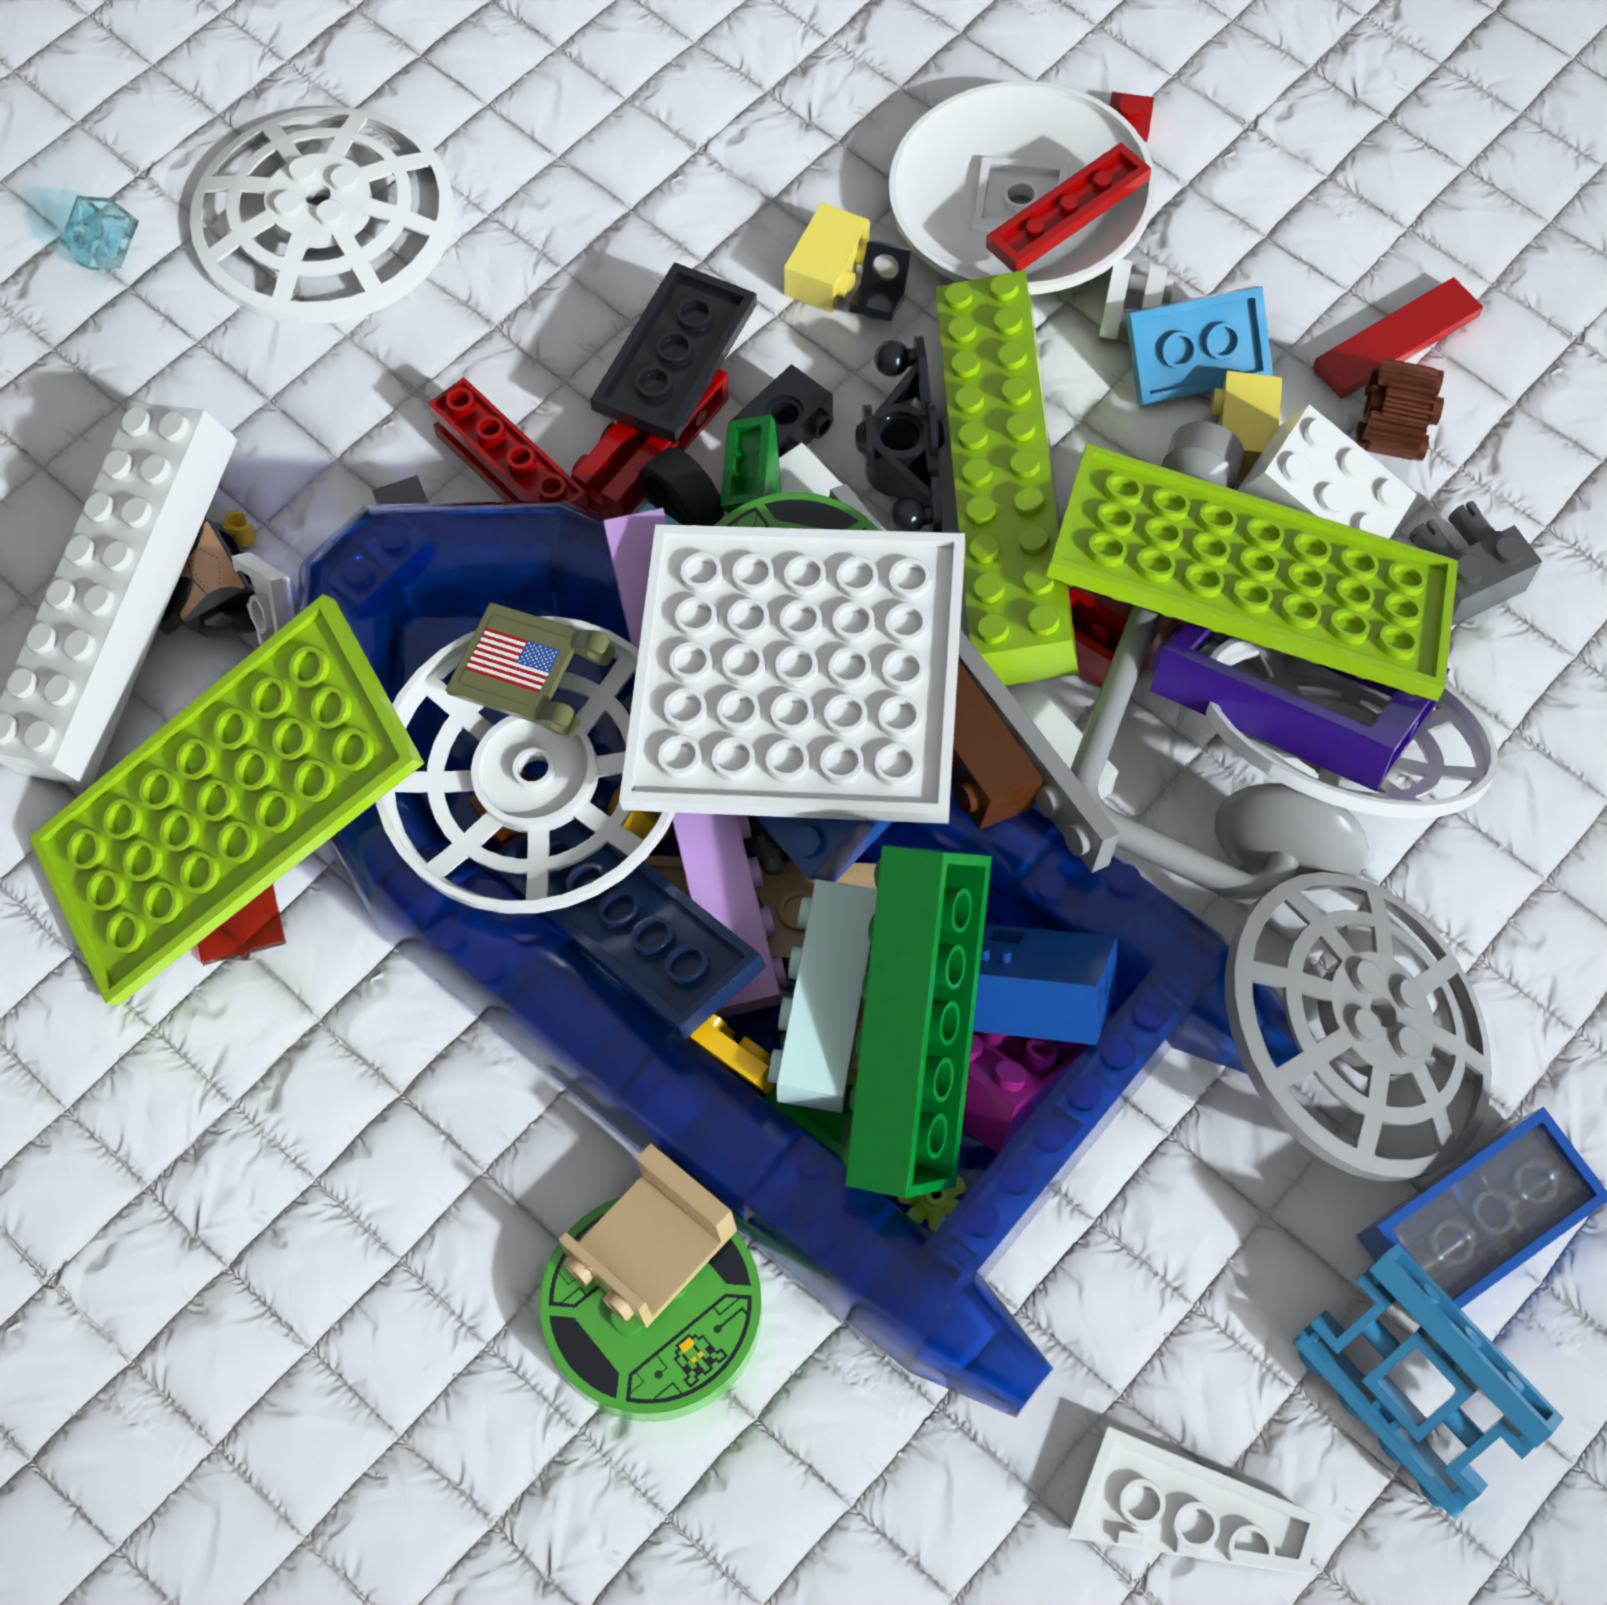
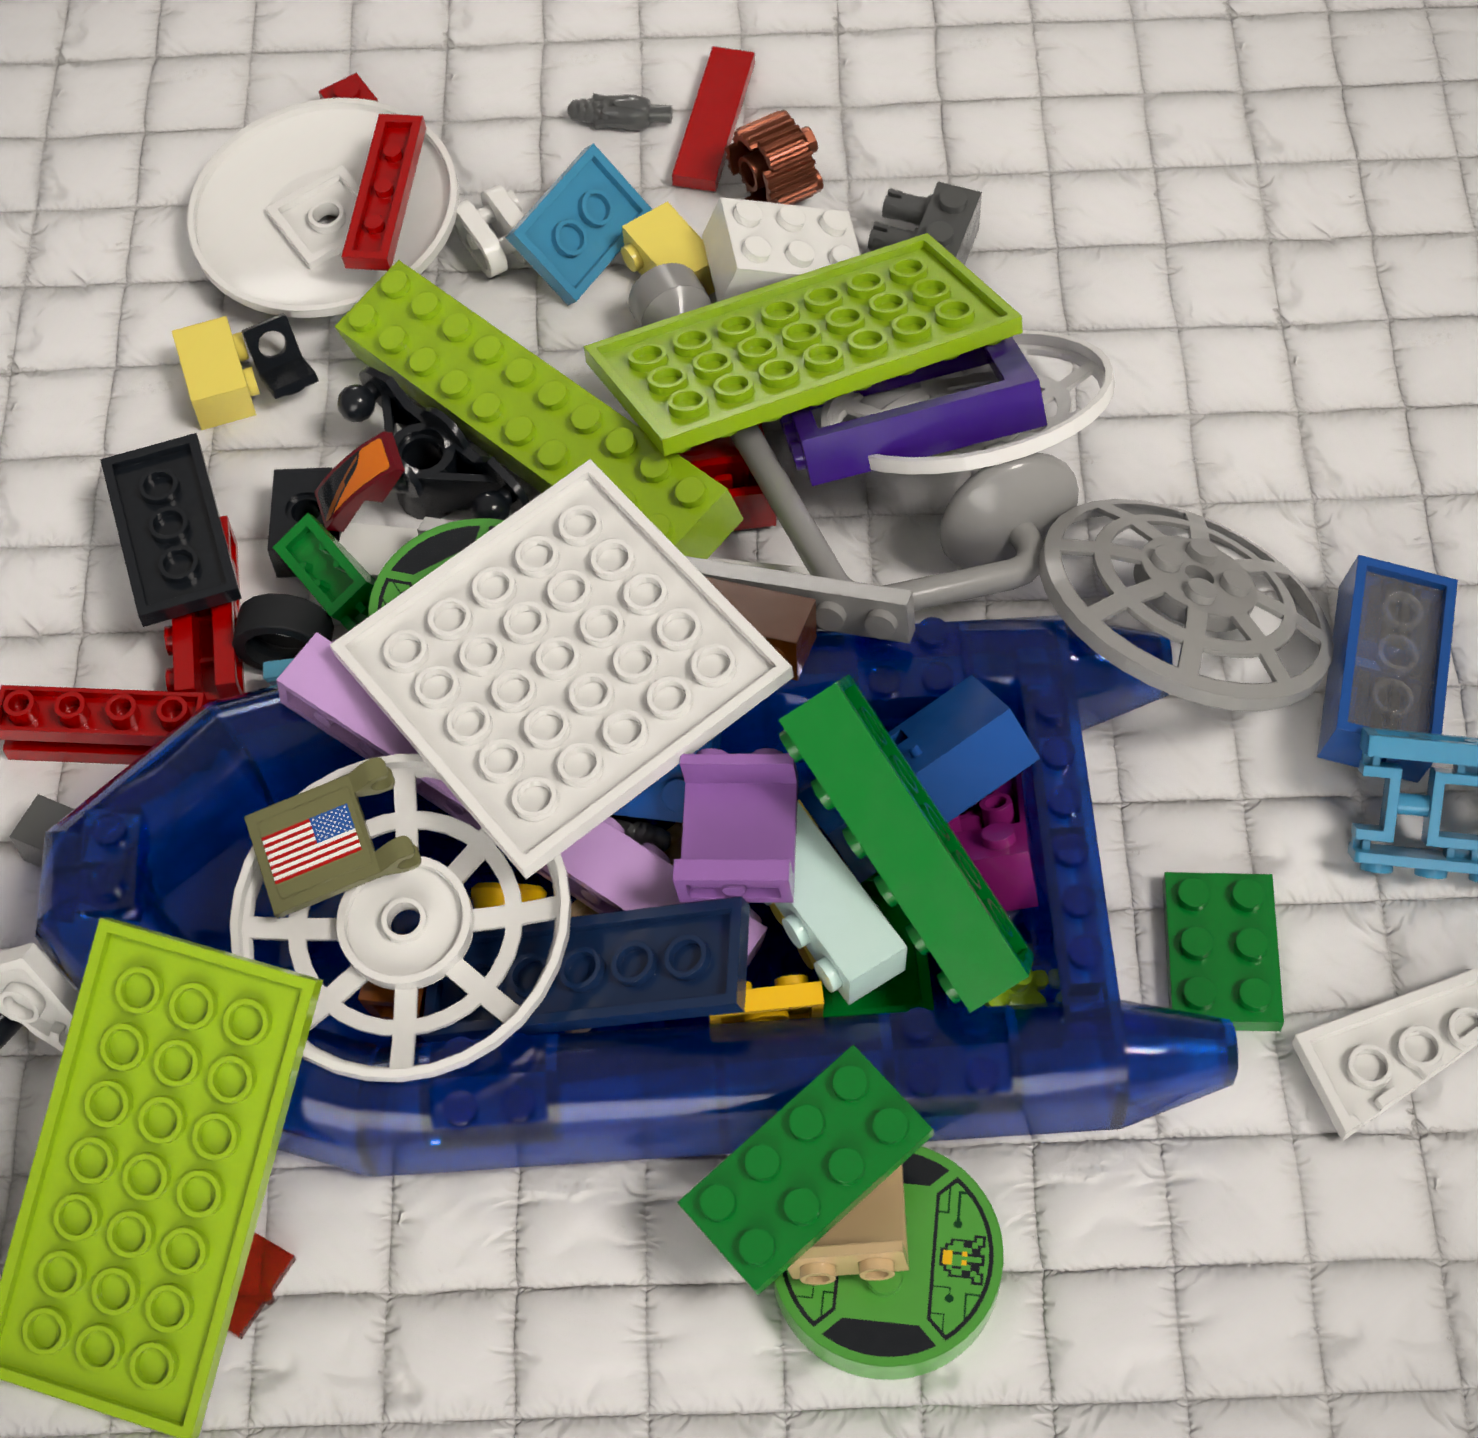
camera: 40 degrees left, 5 degrees down
(630, 1190) = (805, 1169): none -> green plate
(804, 903) = (738, 827): none -> medium lavender panel
(832, 417) = (361, 476): none -> slope
(1125, 1314) = (1223, 948): none -> green plate
(1326, 277) = (619, 111): none -> dark grey piece

